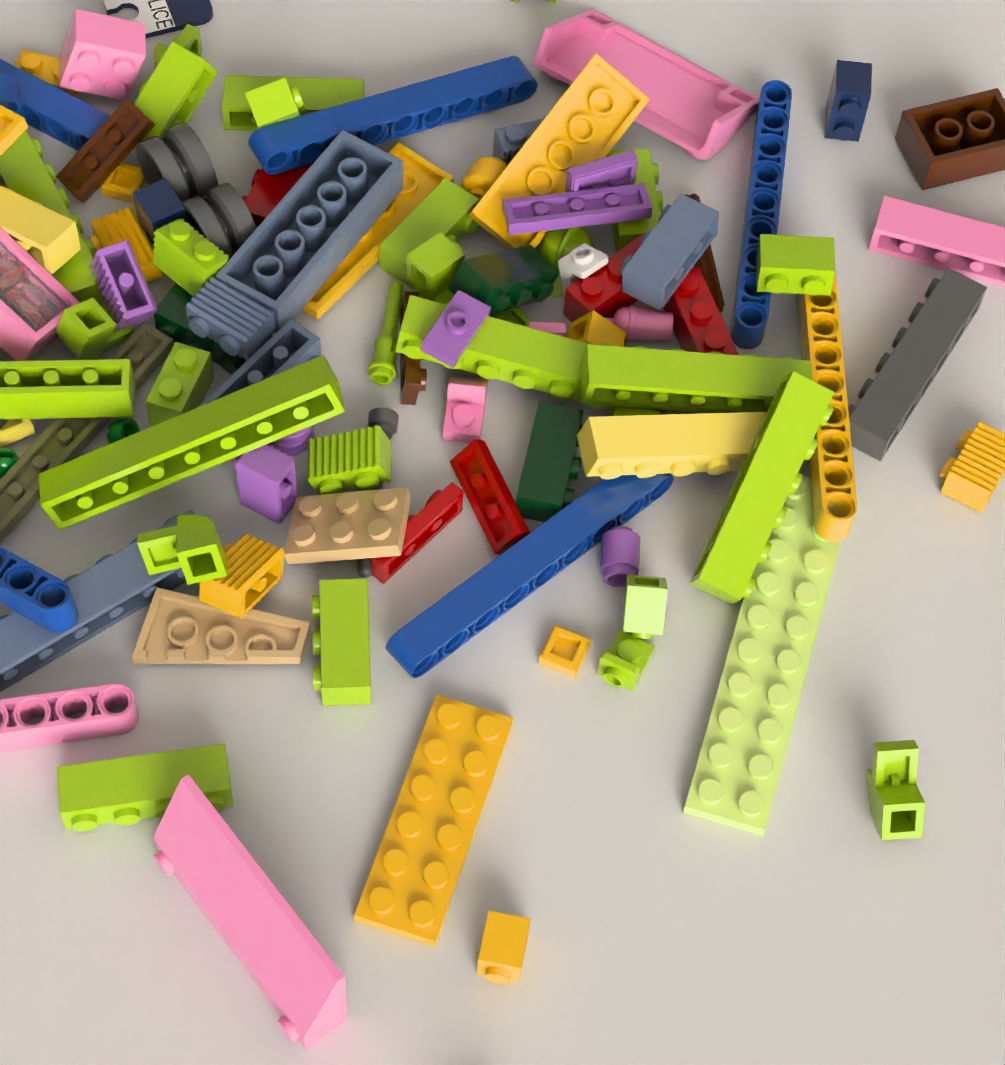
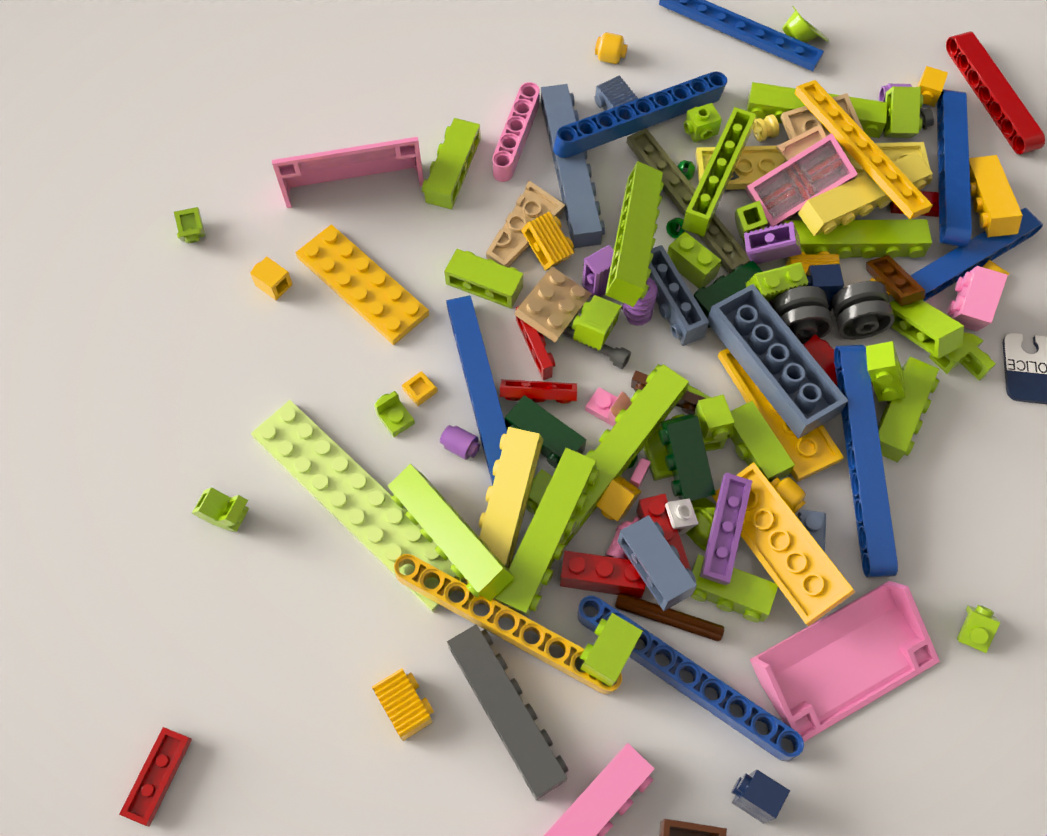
camera: 120 degrees right, 5 degrees up
(189, 546) = (564, 208): lime brick -> none
(230, 319) = (720, 285): sand blue brick -> none
(455, 328) = (649, 395): medium lavender plate -> none
(603, 173) = (748, 557): medium lavender plate -> none
(644, 606) = (417, 433): brick -> none

